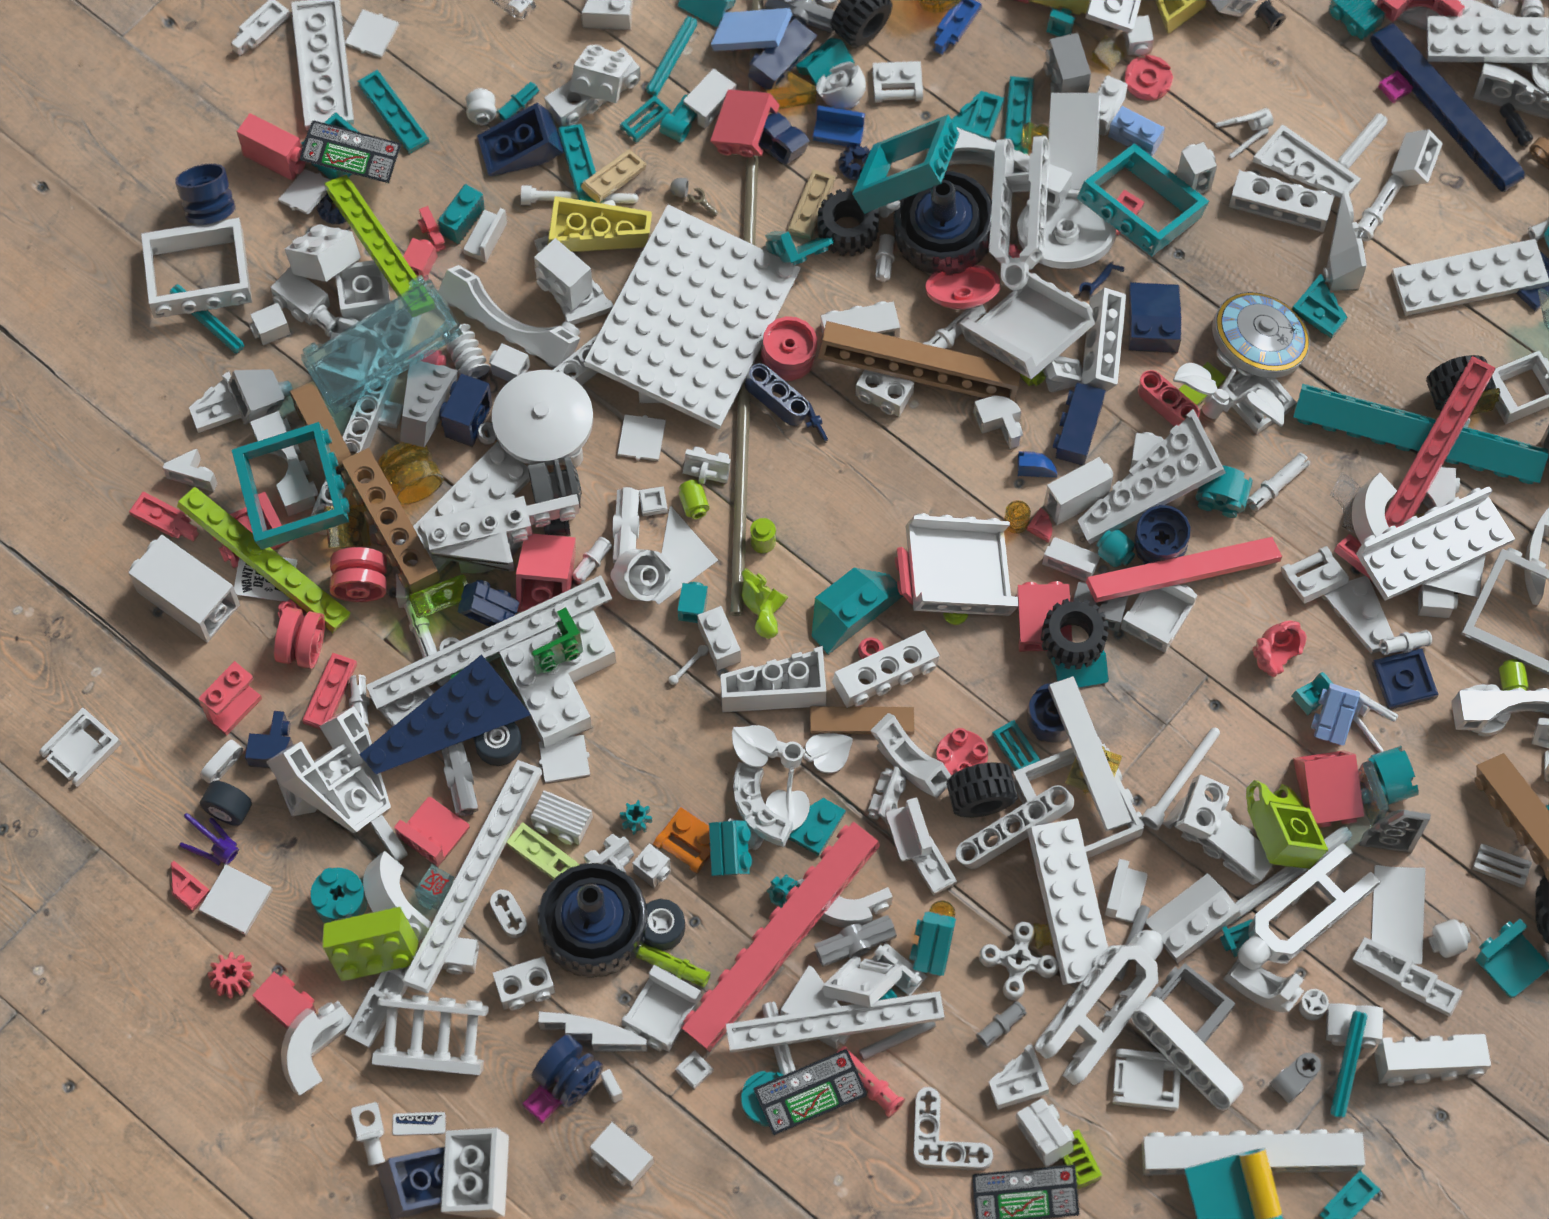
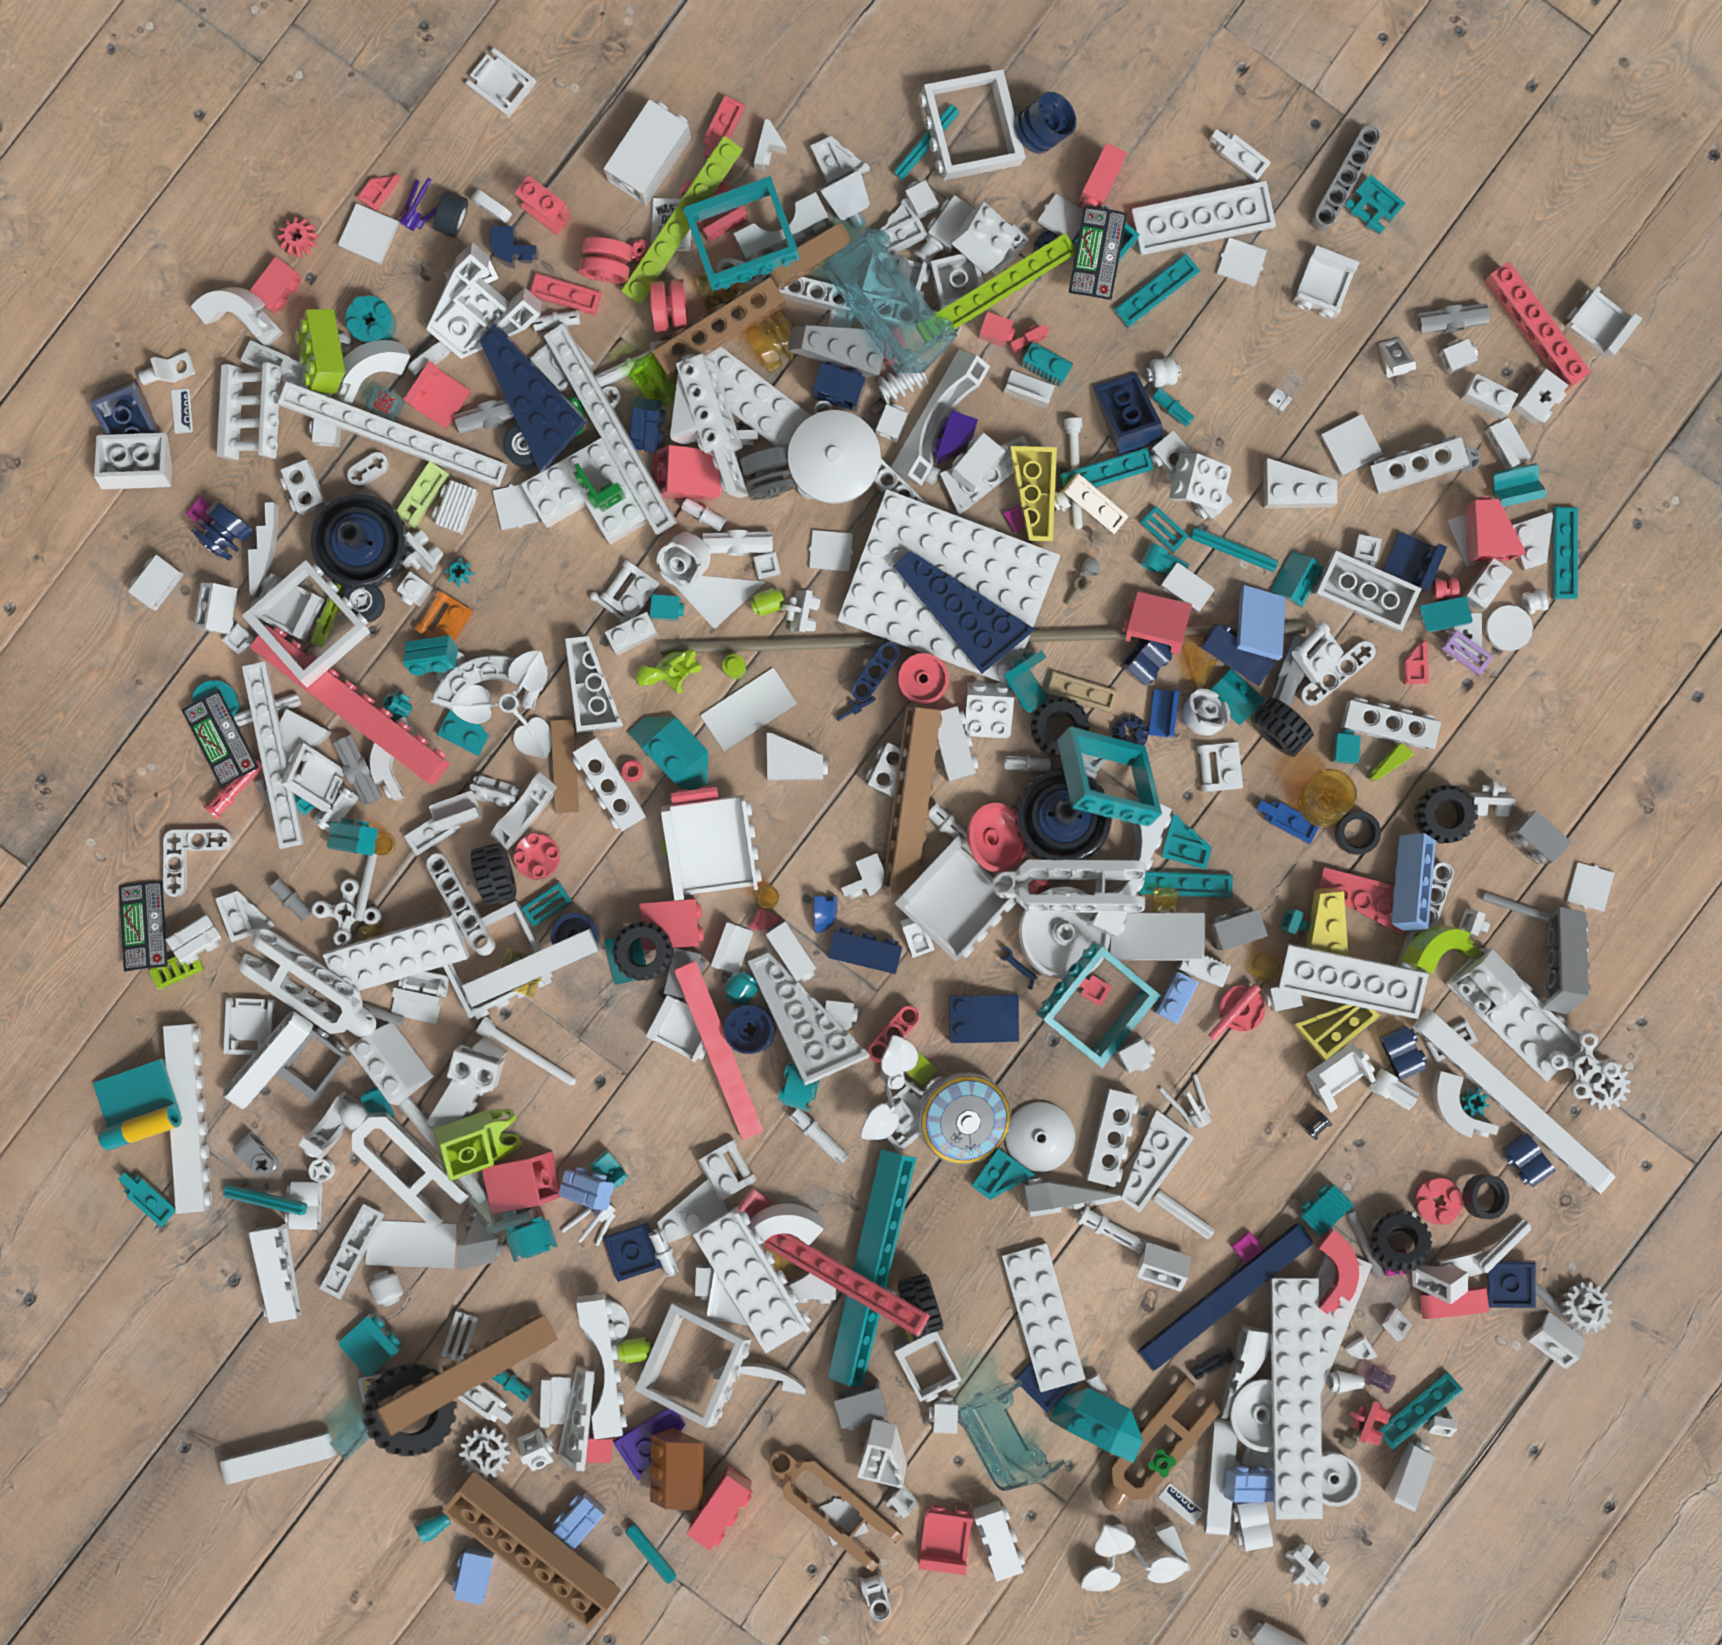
camera: 80 degrees right, 20 degrees up
(292, 342) = (904, 228): none -> white wing
(530, 300) = (958, 433): none -> dark purple slope
(611, 1086) = (217, 569): white tile -> none
(621, 257) = (1014, 518): none -> dark pink tile
(657, 1087) = (215, 608): none -> white brick
(675, 636) = (636, 594): none -> white plate
(710, 1006) = (330, 656): none -> white window
(728, 291) = (972, 621): none -> dark blue wing
(810, 529) = (748, 709): none -> white sticker
(824, 288) = (989, 709): none -> white bracket
(869, 485) = (792, 761): none -> white slope
(991, 937) = (365, 887): none -> white bar
(1102, 874) = (426, 982): none -> white hinge
(1104, 340) = (945, 972): white brick -> none
(1153, 80) = (1234, 1012): none -> coral bar
(1267, 276) = (1040, 1119): none -> white dish
(1278, 646) = (652, 1135): coral hair -> none

